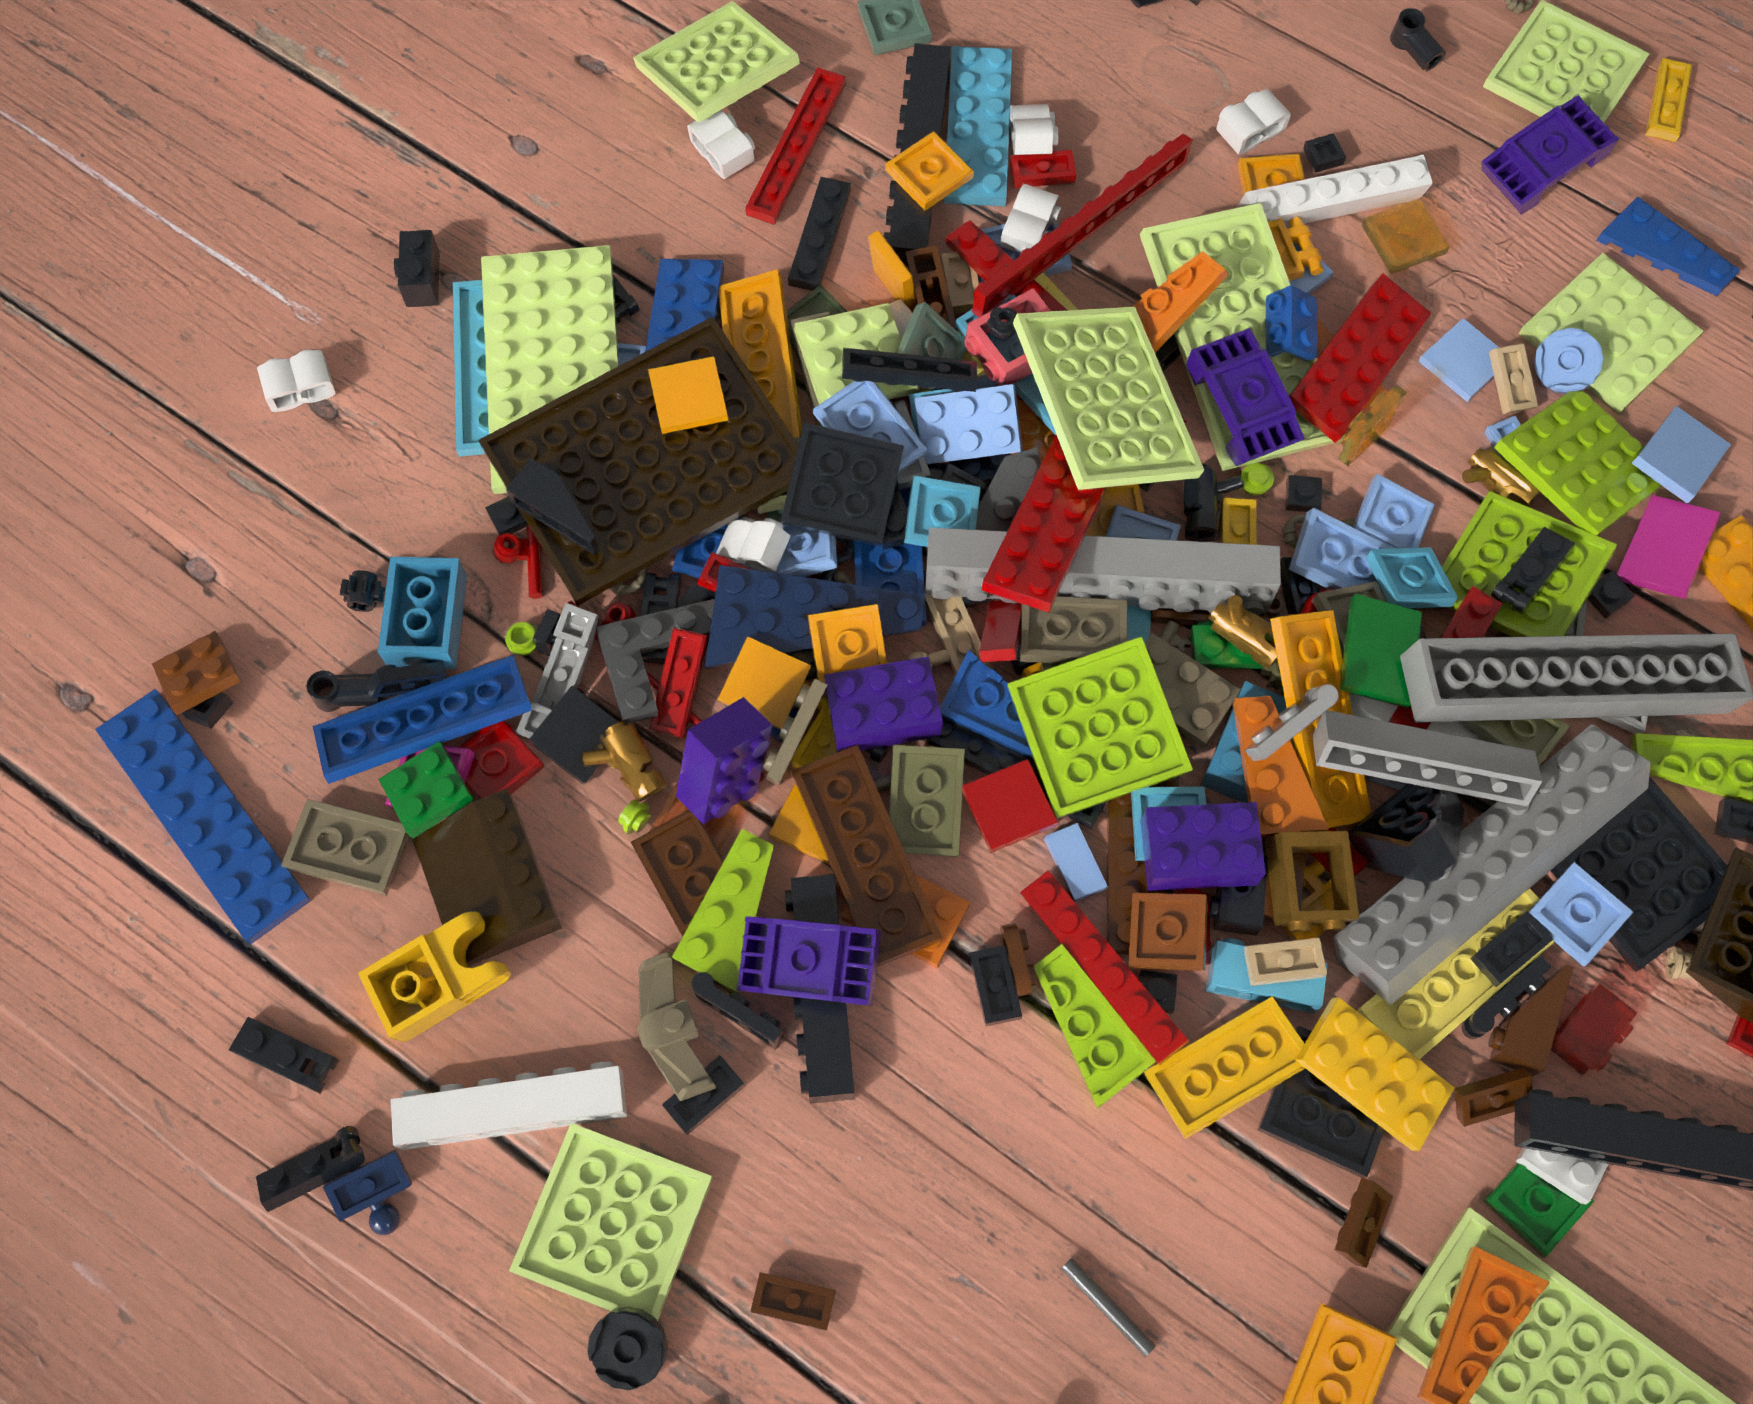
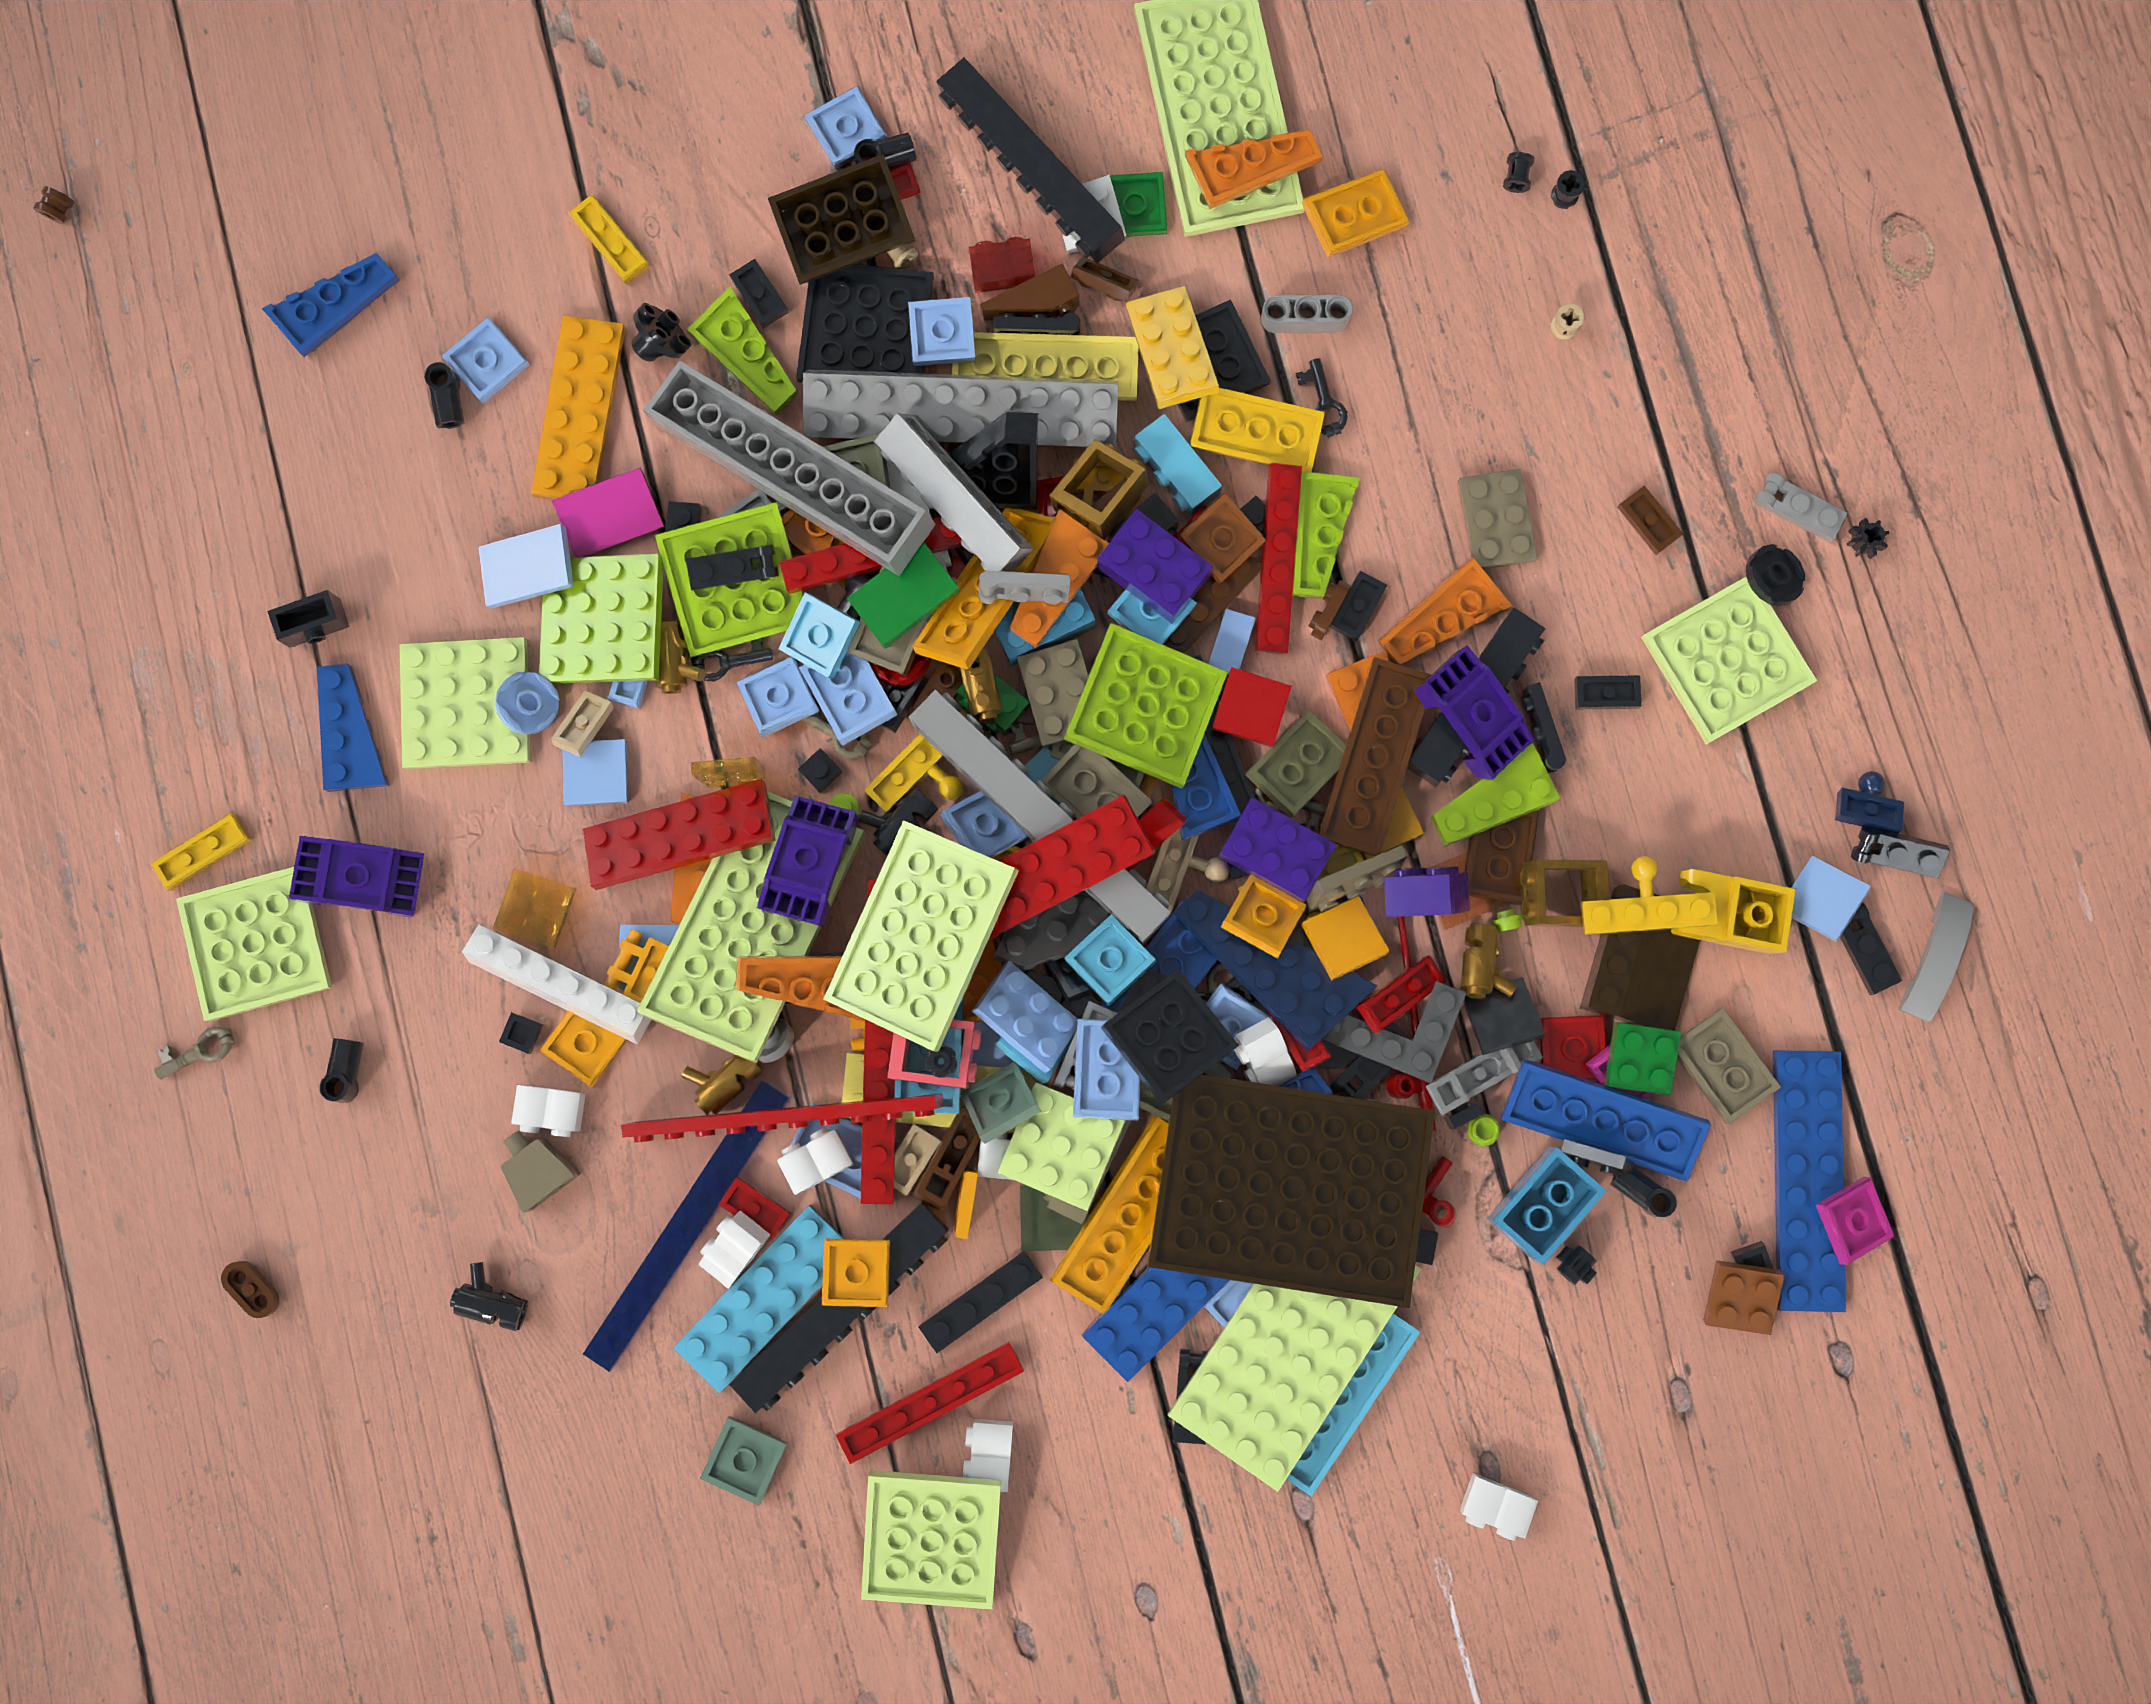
camera: 135 degrees left, 15 degrees up
(135, 804) = (1855, 1220): none -> dark pink tile
(206, 1105) = (1940, 957): none -> light grey slope
(354, 1065) = (1826, 898): none -> light blue tile
(418, 268) = (1329, 1534): black brick -> none
(508, 1107) = (1742, 787): white brick -> none
(512, 904) = (1648, 911): none -> yellow plate
(545, 497) = (1398, 1201): black slope -> none
(587, 915) = (1532, 877): none -> pearl gold window
(668, 1027) = (1598, 752): dark tan plate -> none
(688, 395) = (1224, 1209): light orange tile -> none
(909, 370) = (1043, 1086): black plate -> none
(910, 1057) = (1453, 606): none -> orange wing
(938, 1179) = (1497, 519): none -> dark tan plate
(1079, 121) = (680, 1235): none -> clear blue plate
(1108, 1307) = (1456, 362): dark grey bar -> none
(1139, 275) = (778, 1042): none -> light grey plate
(1145, 213) = (724, 1085): none -> pearl gold piece
(1191, 1156) = (1325, 403): none -> black piece
(1220, 78) = (535, 1170): none -> dark tan torso
(1285, 961) = (1166, 455): tan plate -> none
(1291, 323) = (713, 893): blue bracket -> none
(1303, 1216) = (1318, 304): none -> light grey beam
(1363, 1222) = (1257, 277): reddish brown plate -> none
(1457, 514) = (727, 661): none -> black piece
(1511, 949) = (1007, 347): black plate -> none

